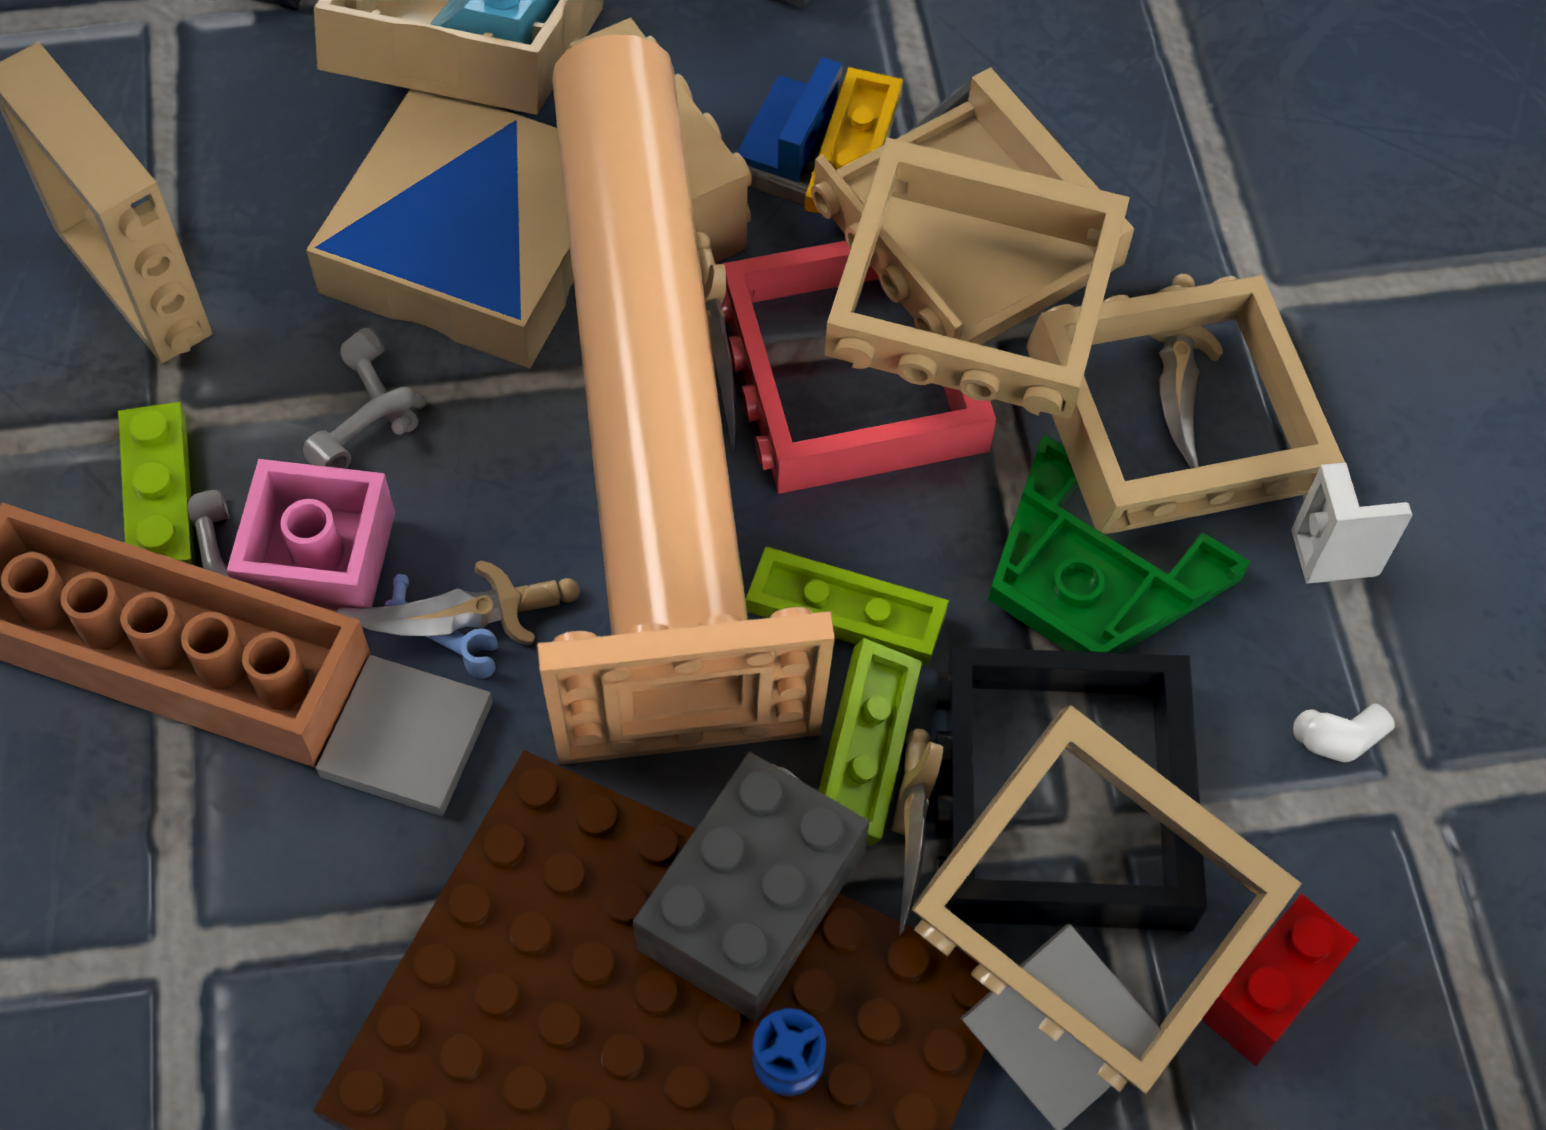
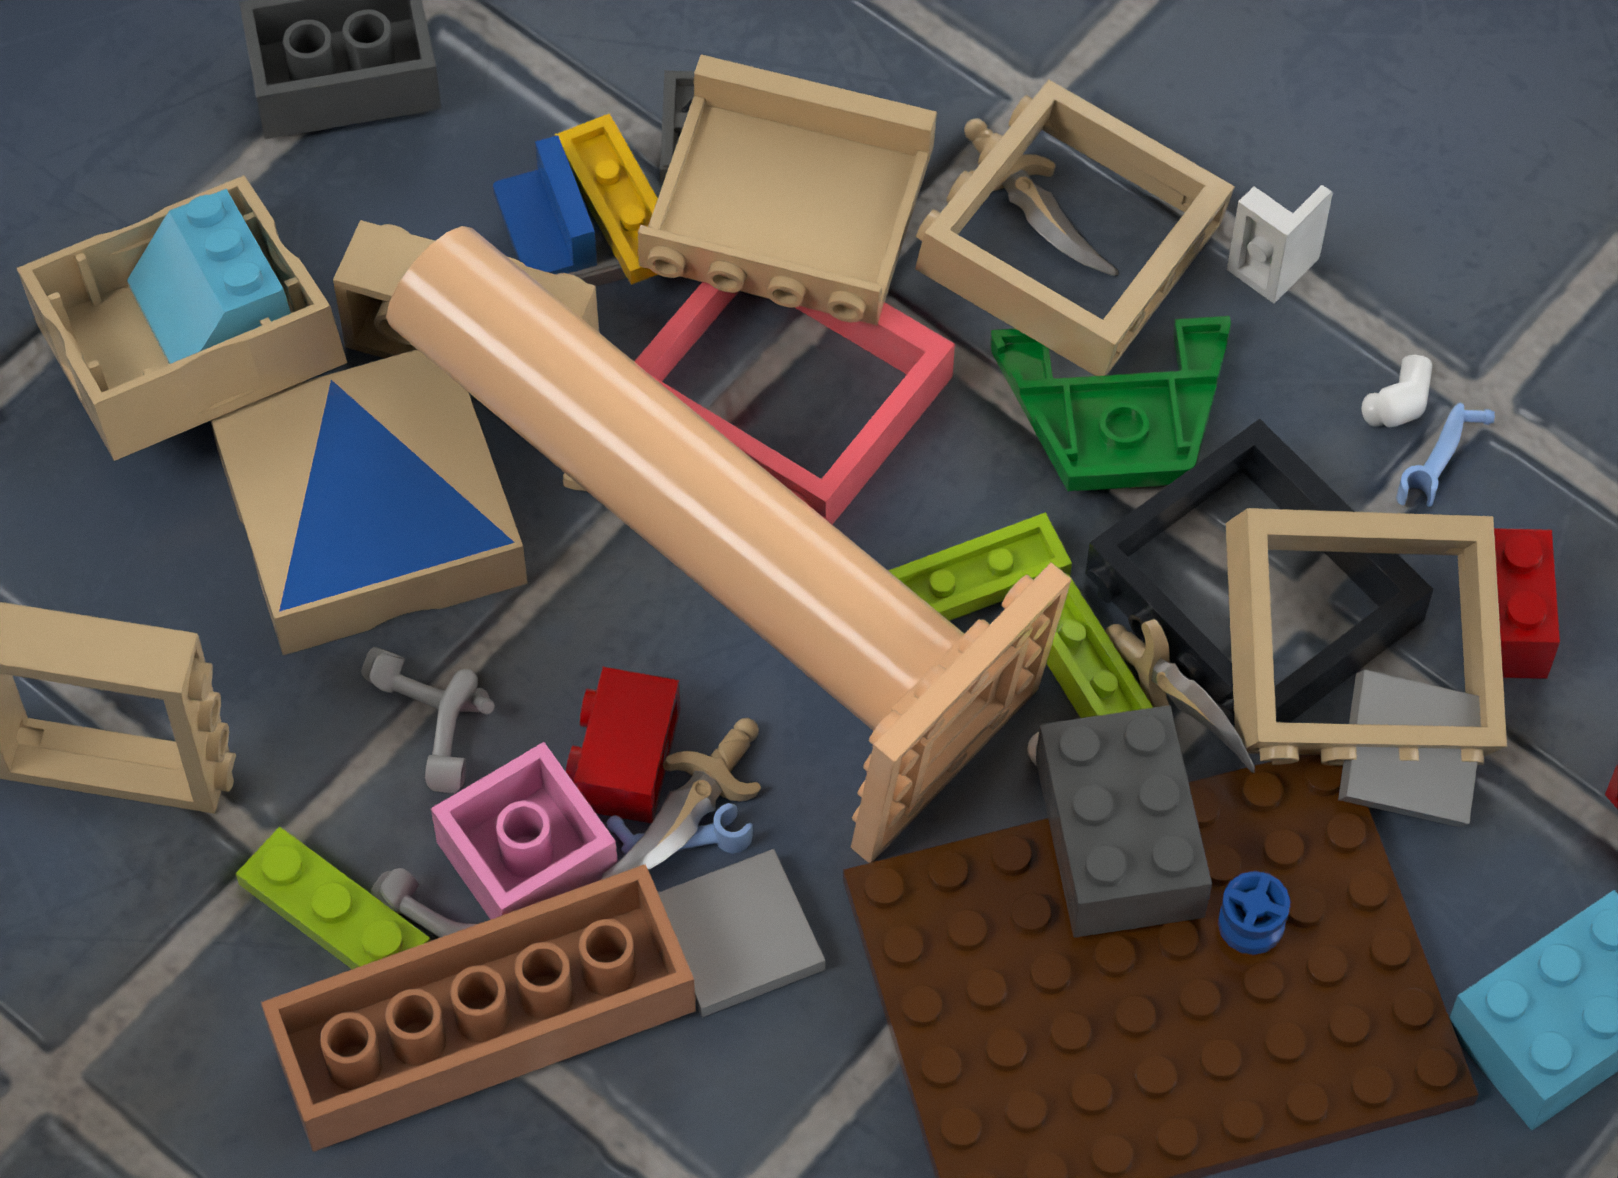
camera: 40 degrees left, 0 degrees up
(465, 522) = (625, 743): none -> red brick
(994, 195) = (833, 156): tan window -> none
(1334, 806) = (1427, 476): none -> light blue piece

